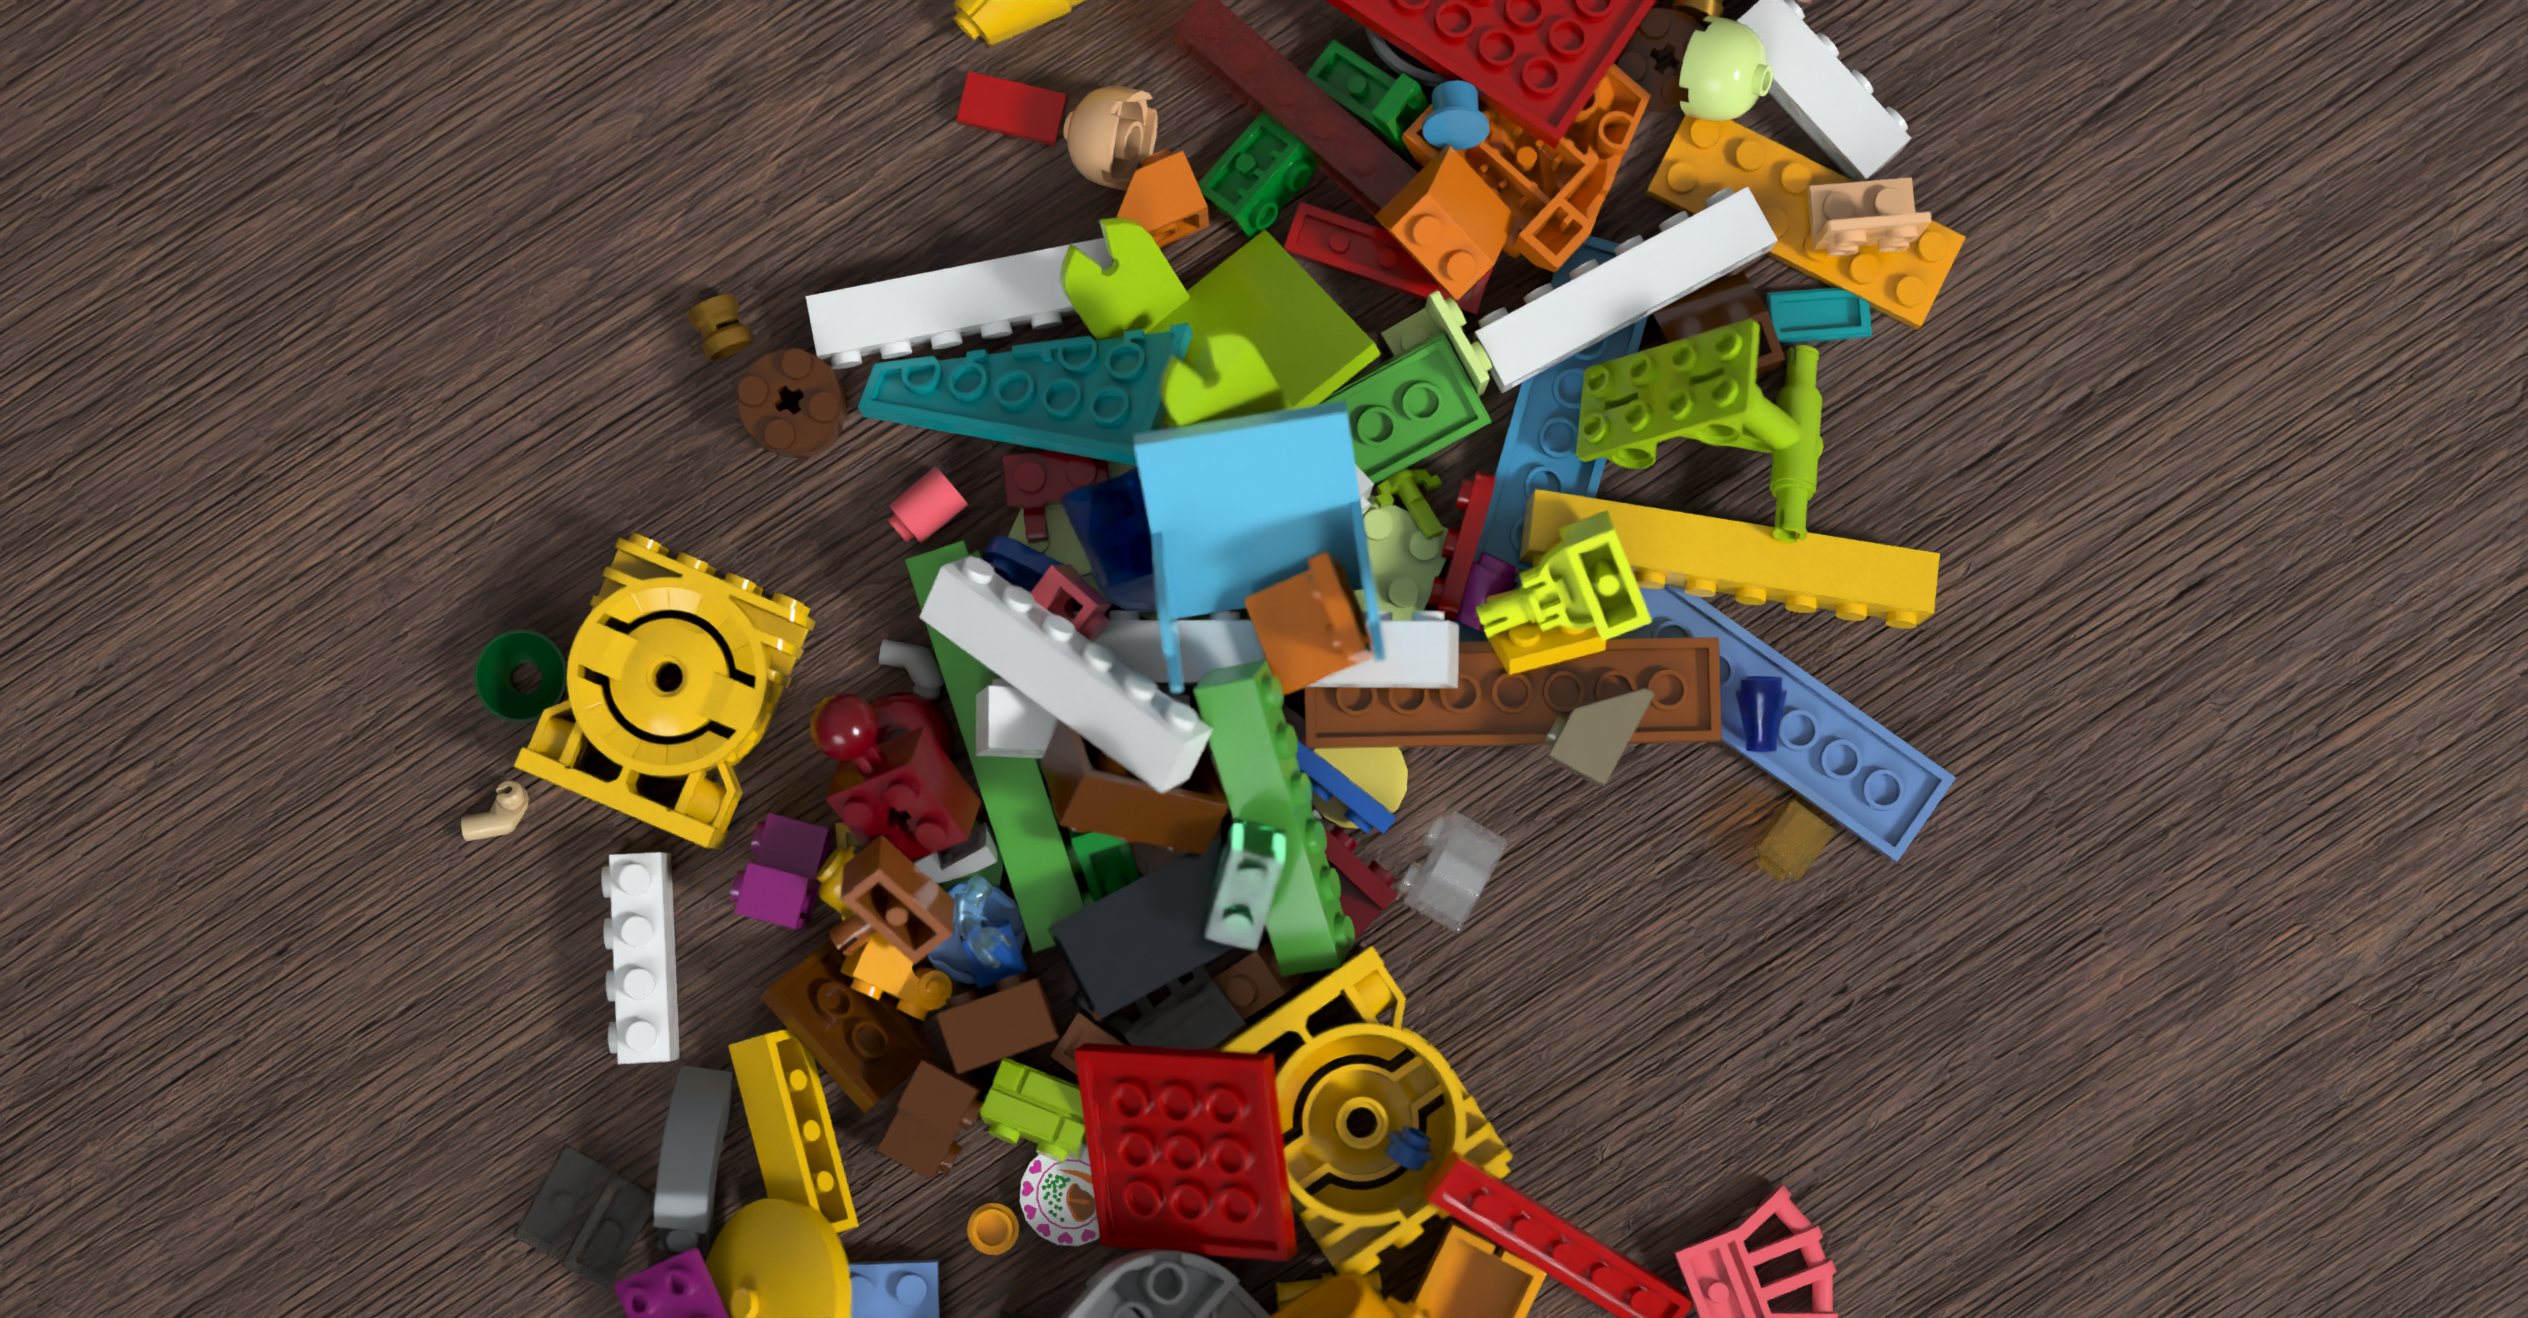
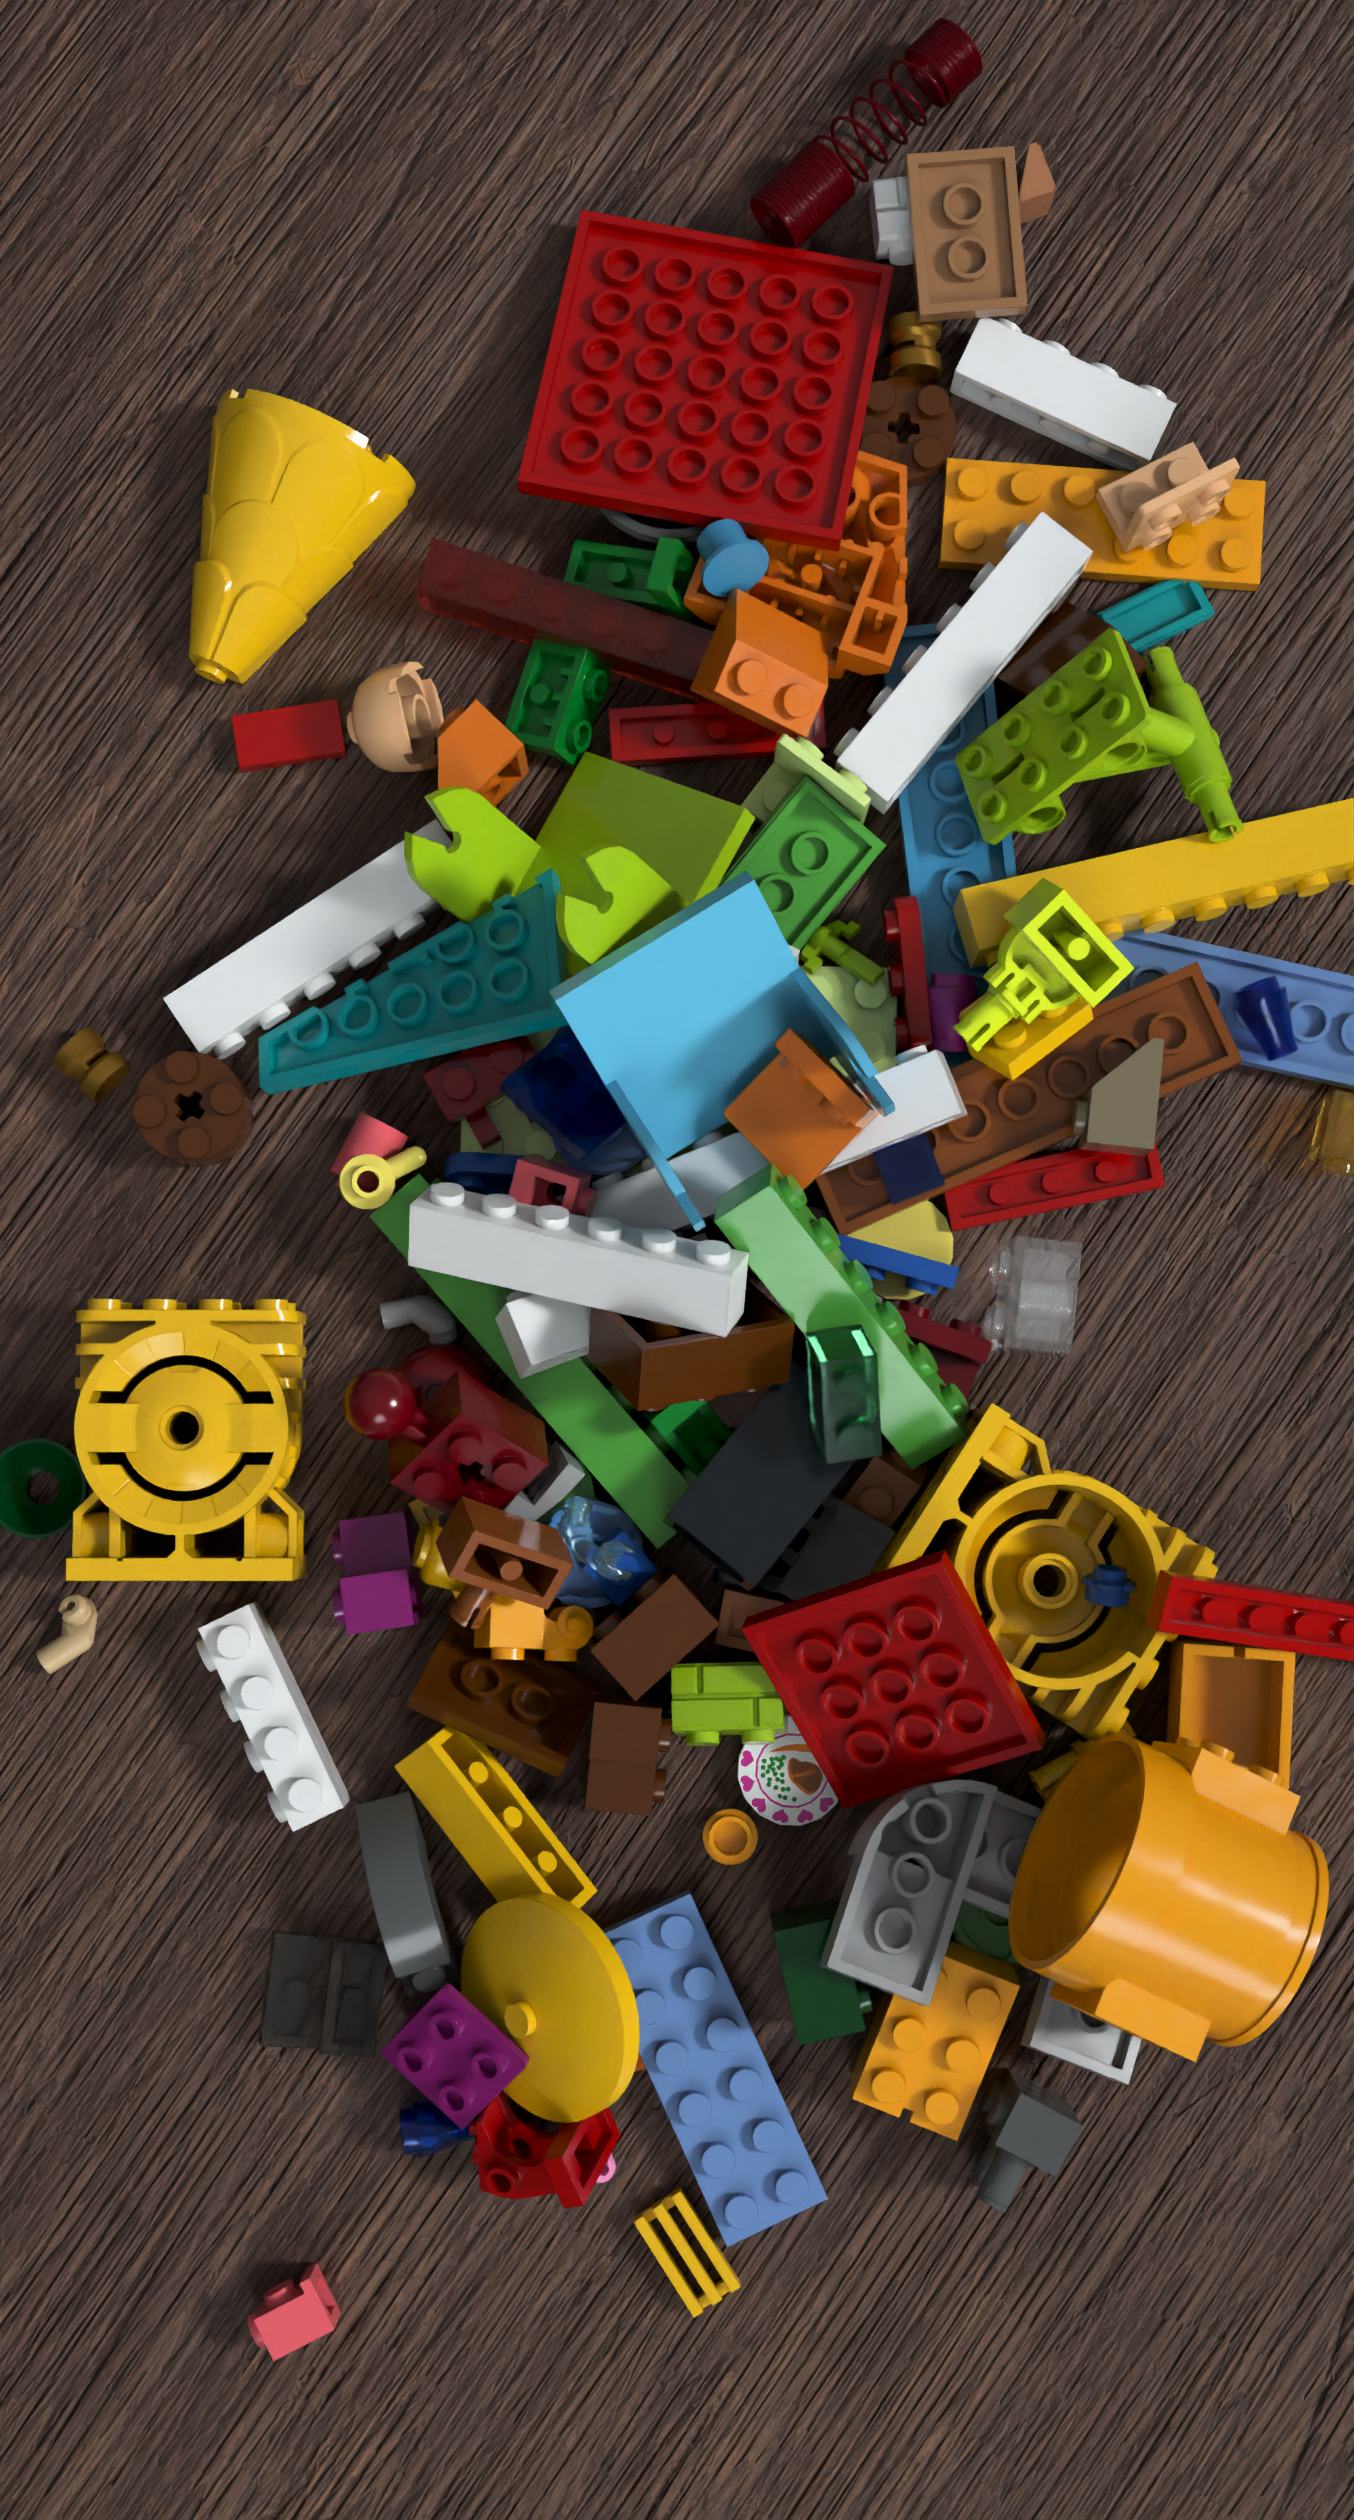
camera: 25 degrees left, 0 degrees up
(935, 528) = (386, 1172): none -> light yellow plate
(1387, 714) = (908, 1169): none -> clear blue plate
(1512, 779) = (1050, 1185): none -> red plate
(1724, 70) = (971, 409): yellowish green cylinder -> none

